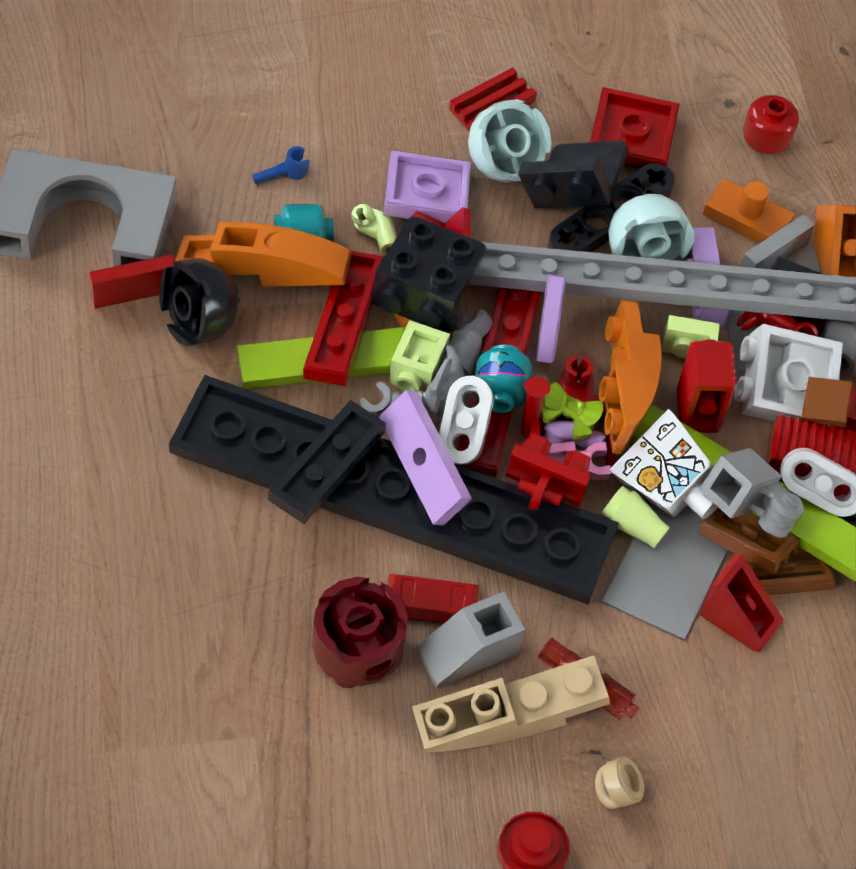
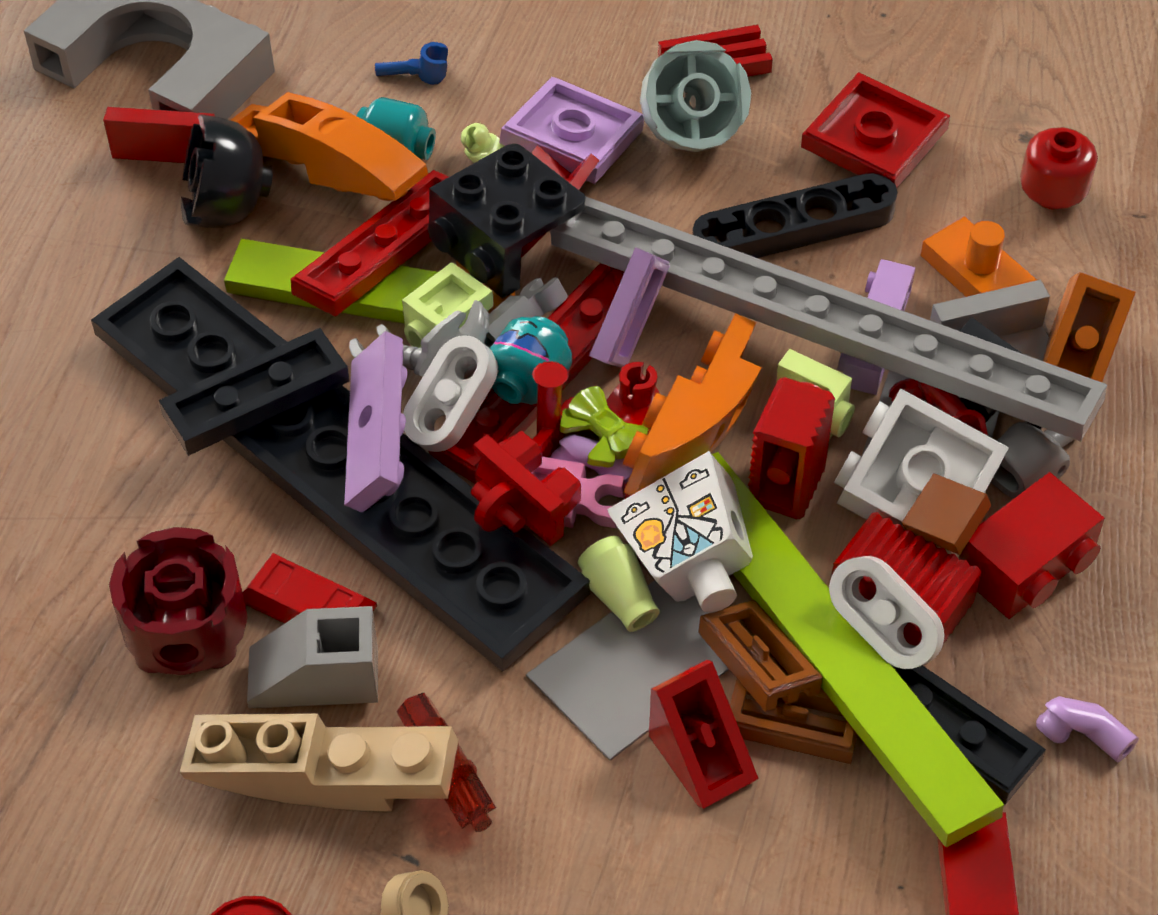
camera: 30 degrees right, 5 degrees down
(575, 174) = (757, 160): black bracket -> none
(651, 228) = (822, 240): light aqua cylinder -> none
(748, 484) = (774, 580): light grey brick -> none

